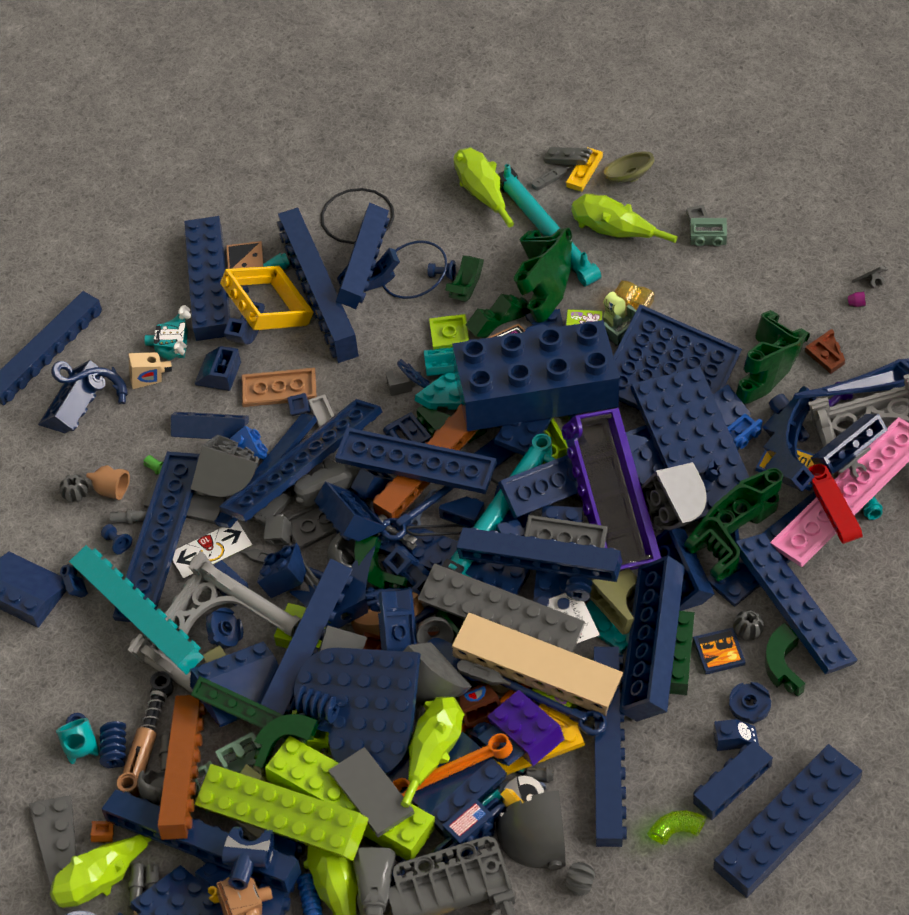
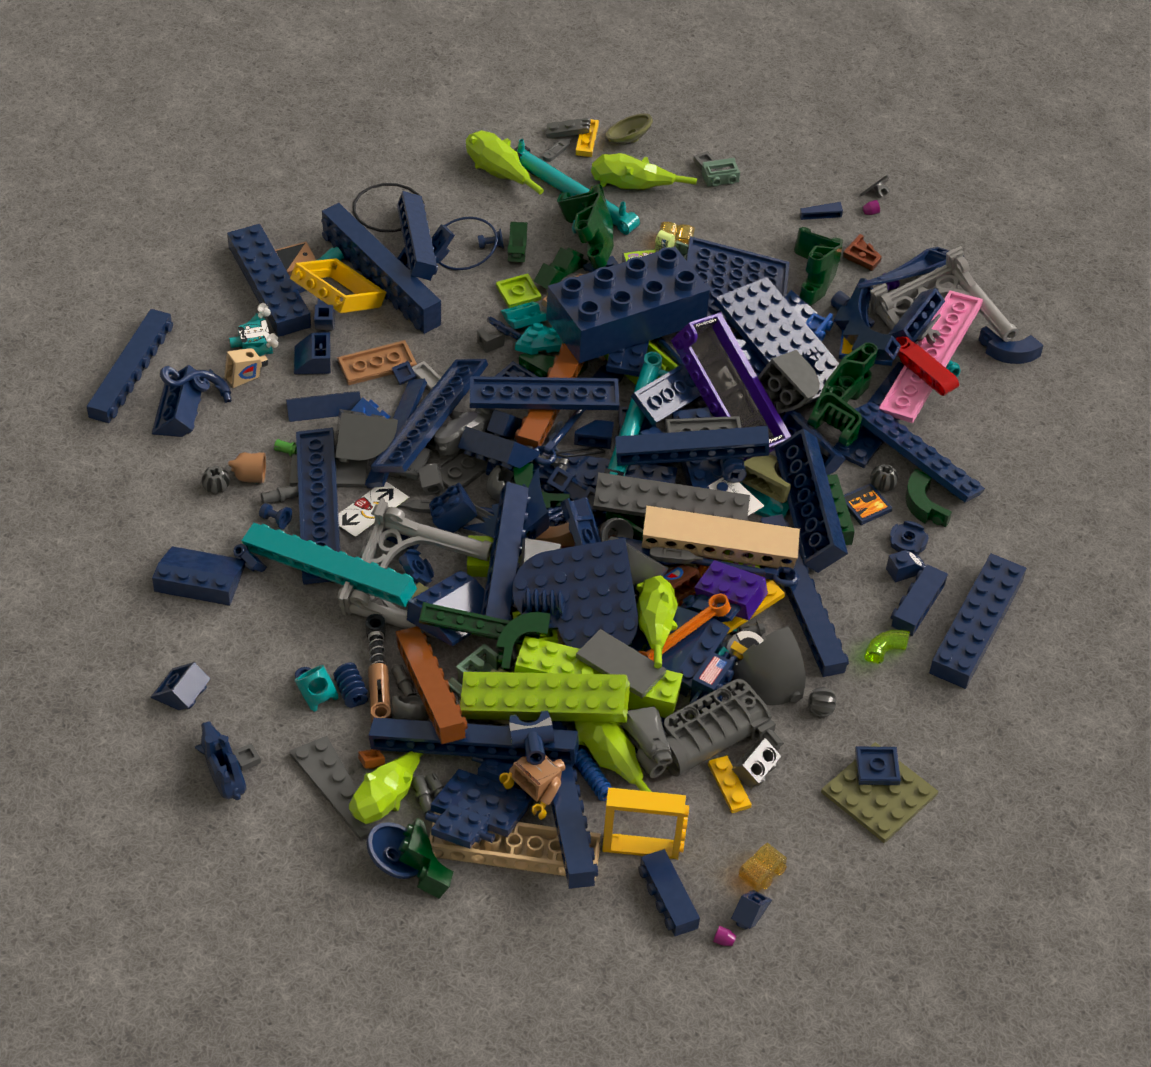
camera: 25 degrees left, 5 degrees down
(804, 294) = (830, 210): none -> dark blue piece

